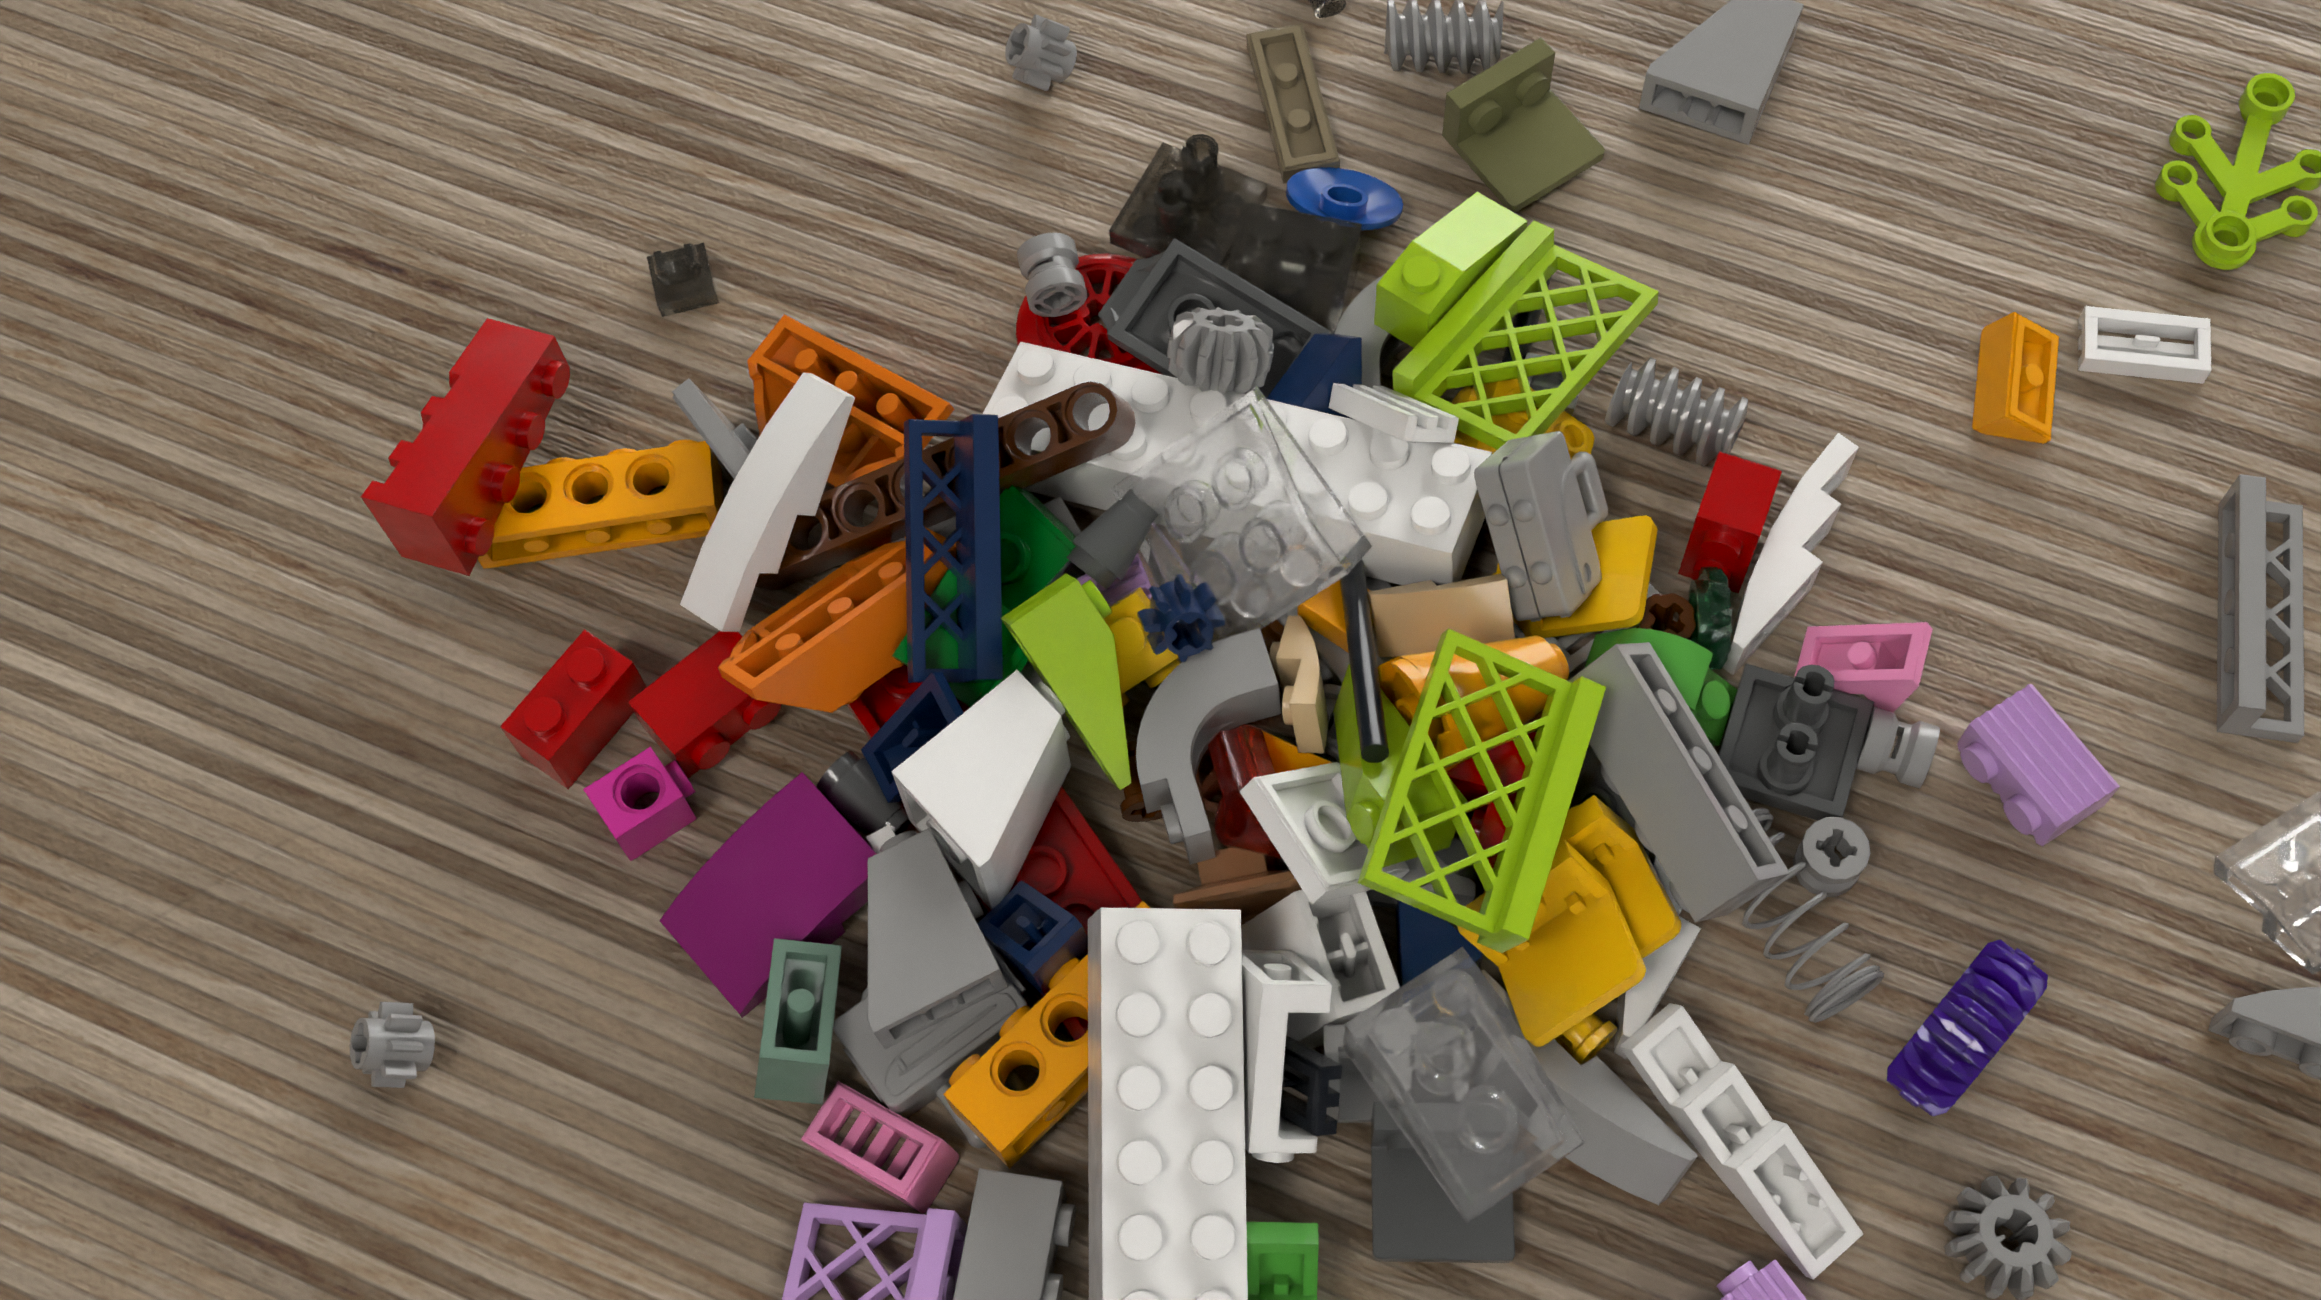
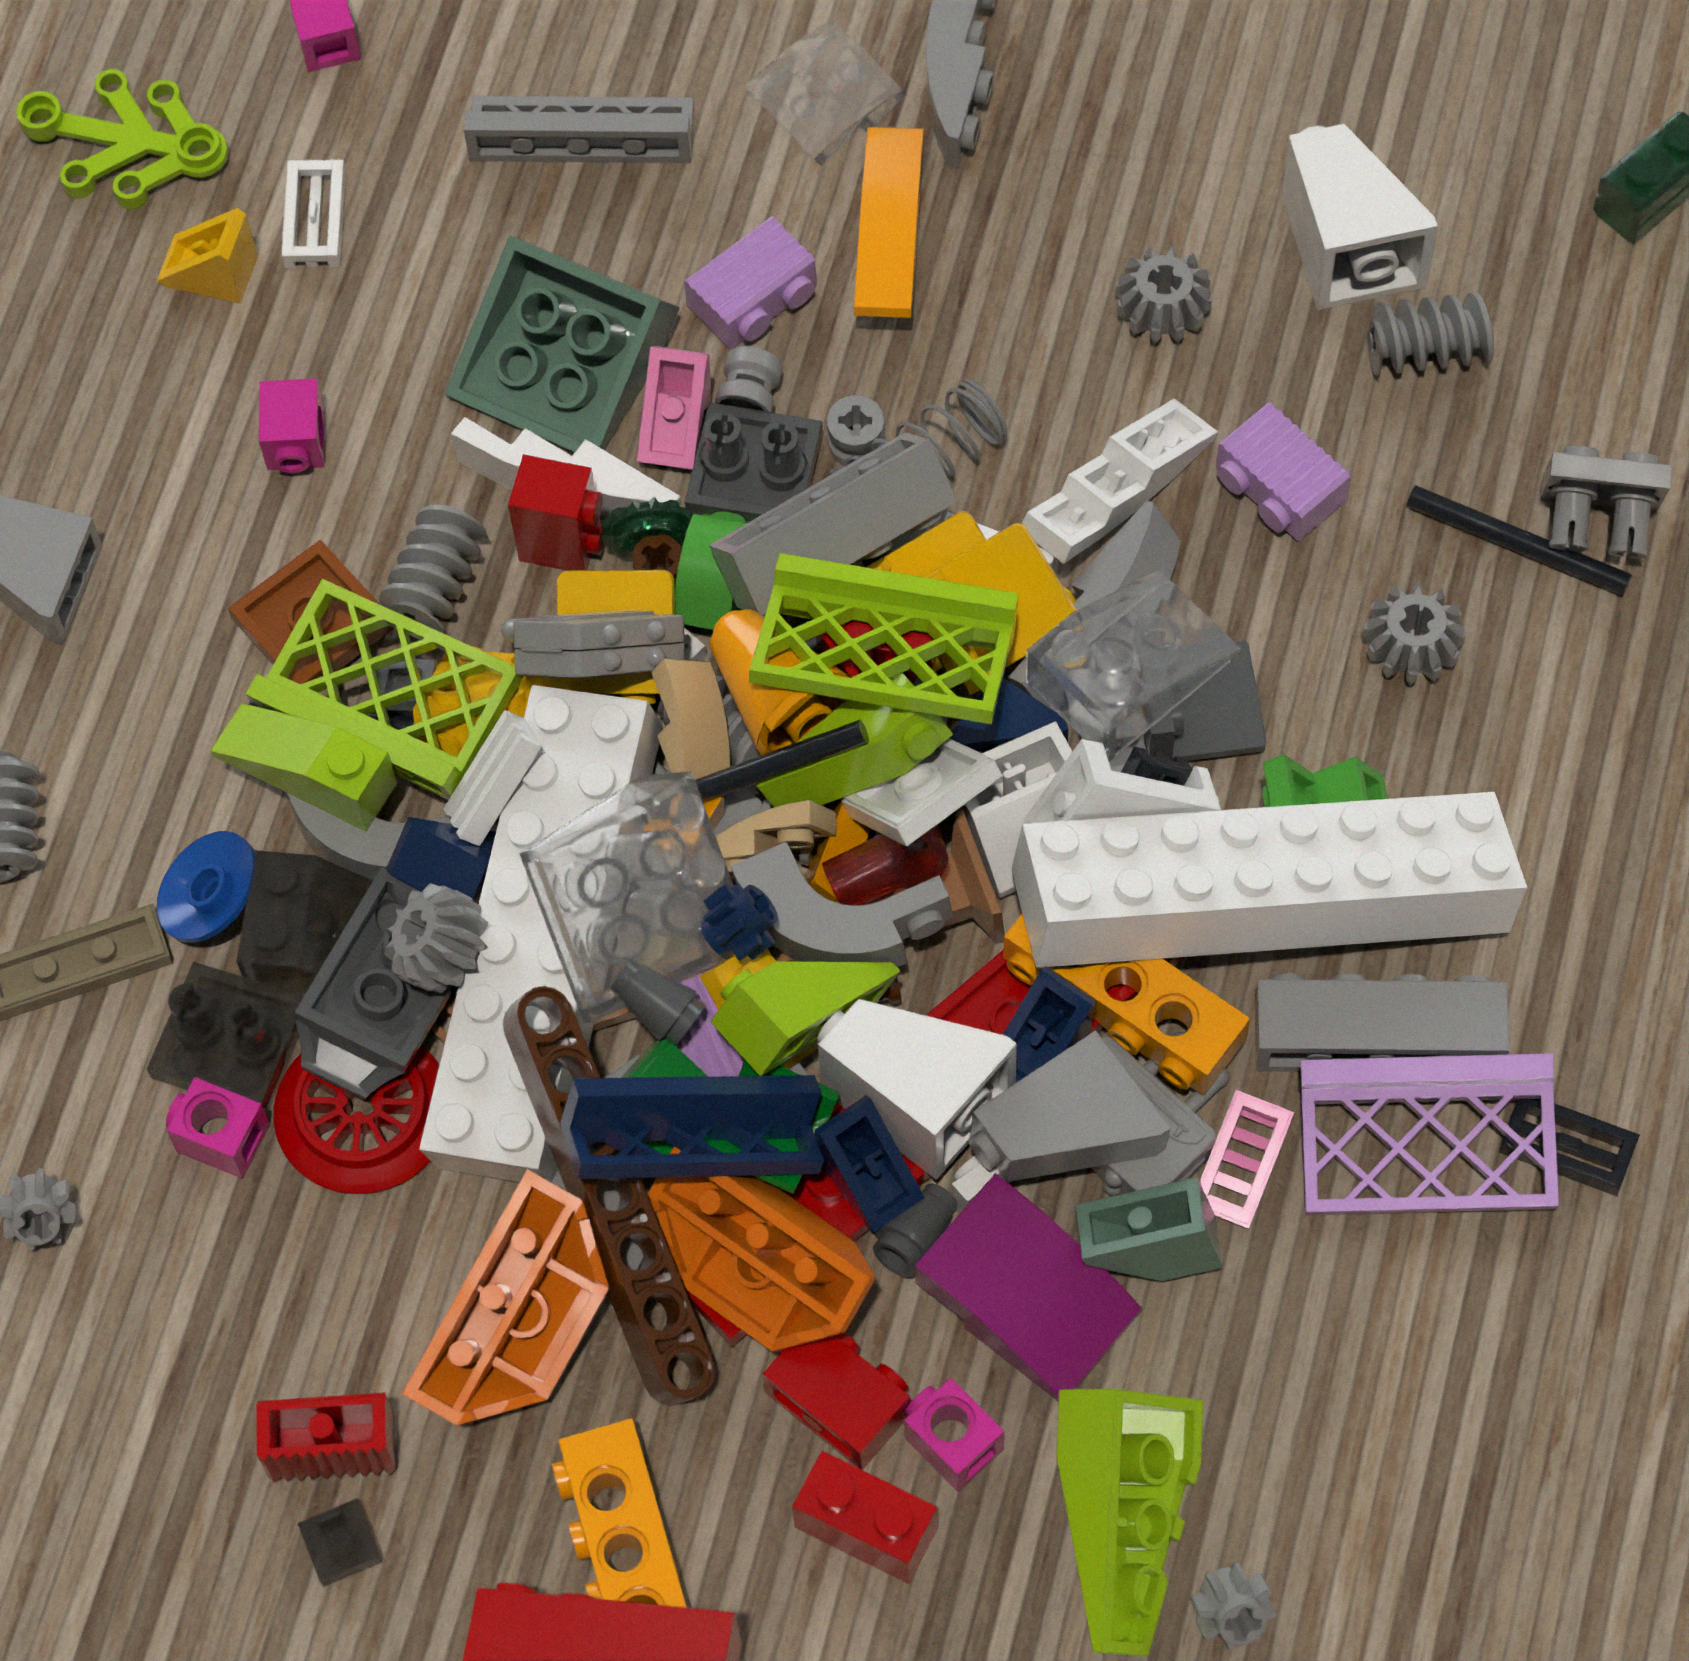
camera: 100 degrees left, 0 degrees up
(547, 959) = (1122, 1486): none -> lime wedge
(728, 442) = (568, 1407): light grey plate -> none
(765, 257) = (325, 1436): none -> red brick
(775, 484) = (649, 1329): white slope -> none
(1050, 267) = (346, 1130): light grey wheel -> none
(1078, 210) = (234, 1144): none -> dark pink brick
(1518, 129) = (115, 735): olive bracket -> none
(1678, 321) = (276, 605): none -> dark orange plate
(1868, 300) = (291, 424): none -> dark pink brick
(1966, 555) = (558, 347): none -> sand green slope
(1967, 1028) = (1004, 316): dark purple gear -> none
(2016, 380) = (359, 313): light orange slope -> none
(2079, 247) = (212, 258): none -> yellow slope
(2119, 924) = (888, 222): none -> light orange slope

